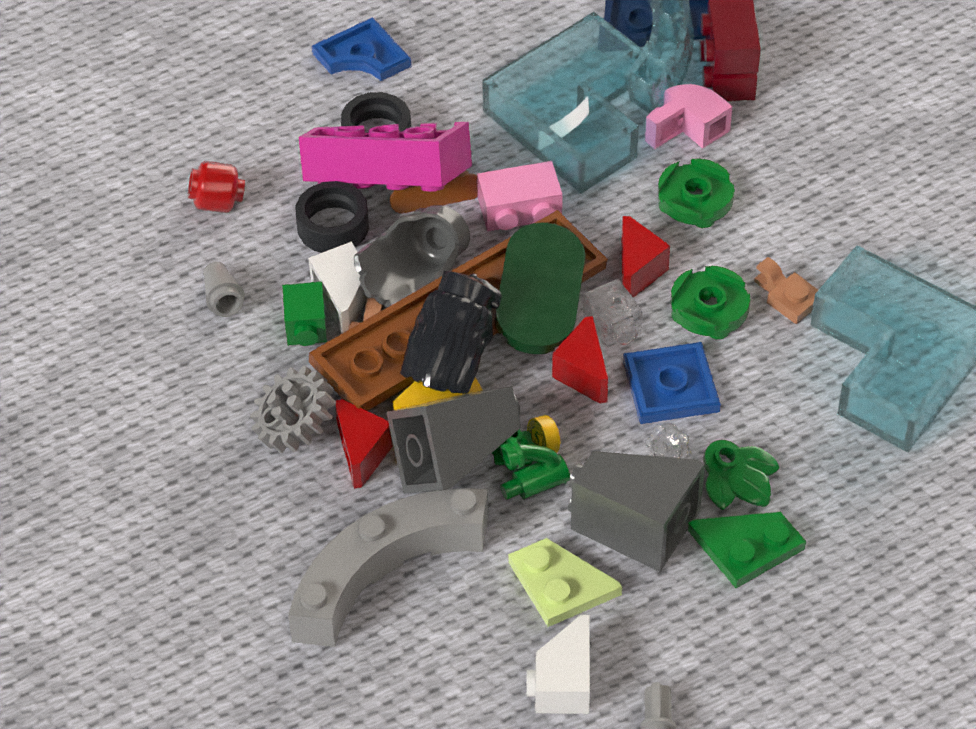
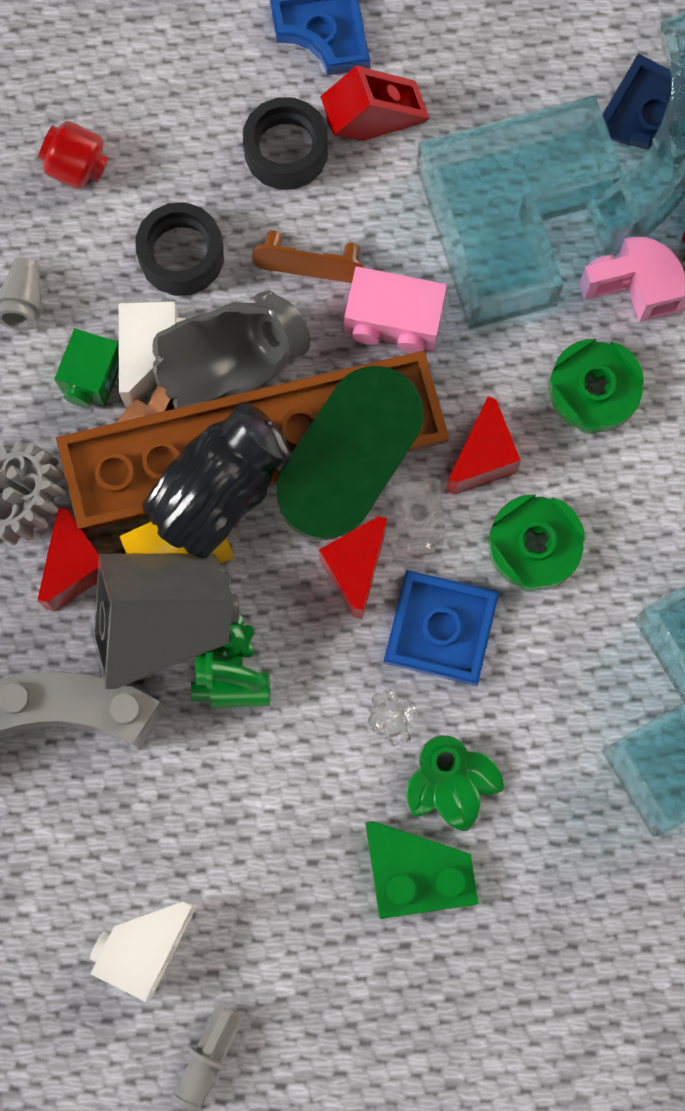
camera: 25 degrees right, 25 degrees up
(386, 155) = (267, 202): dark pink wedge -> none
(428, 81) = (372, 104): none -> red slope
(544, 432) = (265, 643): yellow tile -> none
(560, 581) = (197, 828): yellowish green wing -> none
(572, 120) = (488, 238): white sticker -> none
(636, 503) = (310, 788): dark grey slope -> none
(789, 295) = (632, 572): nougat plate -> none

